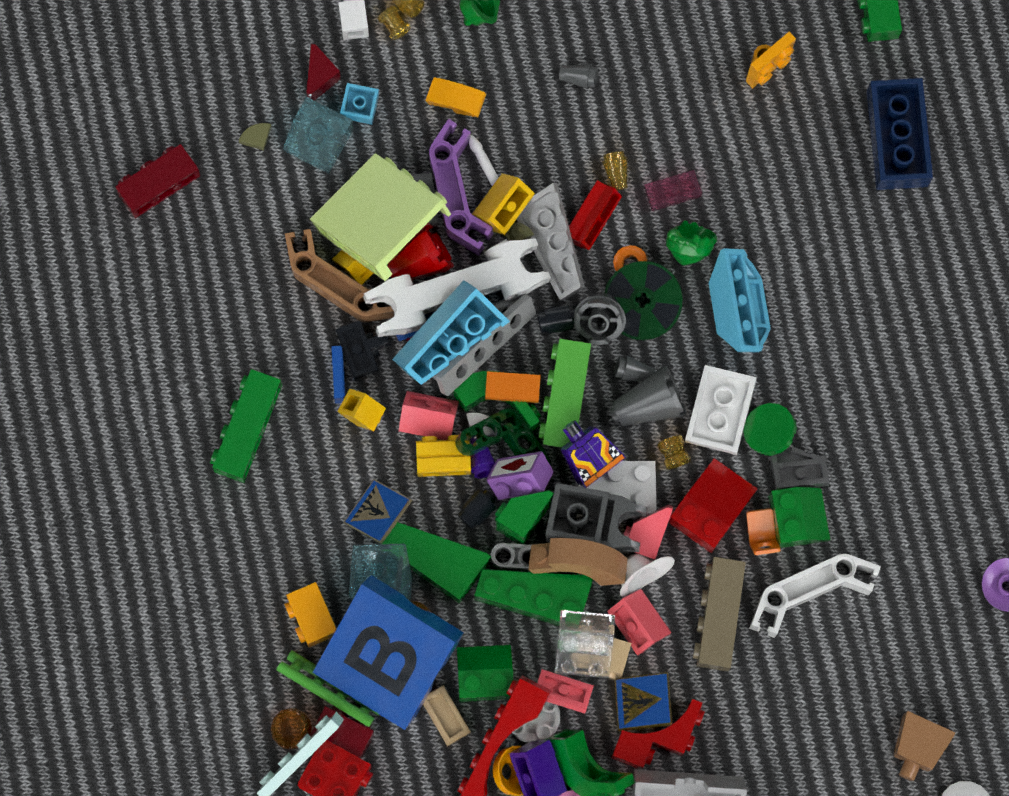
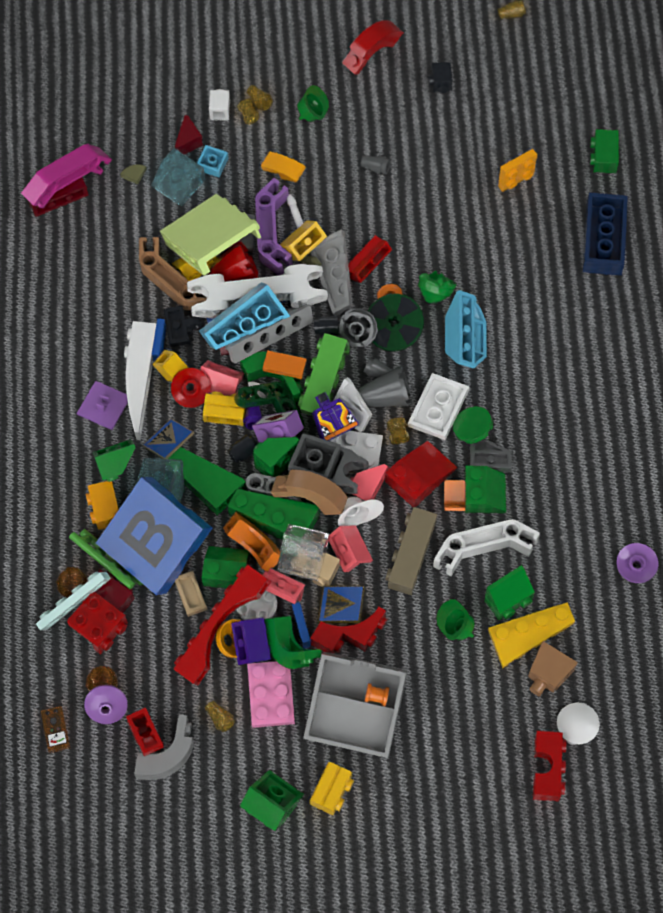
camera: 15 degrees right, 10 degrees down
(167, 157) = (64, 172): none -> dark pink piece
(246, 426) = (84, 366): green brick -> none
(281, 474) = (103, 405): none -> medium lavender piece
(314, 553) = (113, 459): none -> green slope
(319, 420) = (139, 371): none -> white slope
(401, 442) = (193, 397): none -> red dish
(518, 635) = (253, 540): none -> orange arch
(596, 737) = (301, 625): none -> blue tile
(611, 425) = (355, 403): none -> white wing
(616, 169) = (391, 230): clear yellow cone -> none
(673, 190) = (430, 250): clear pink plate -> none
(790, 700) = (455, 621): none -> green piece
(855, 654) = (509, 593): none -> green slope
(882, 699) = (522, 634): none -> yellow wing

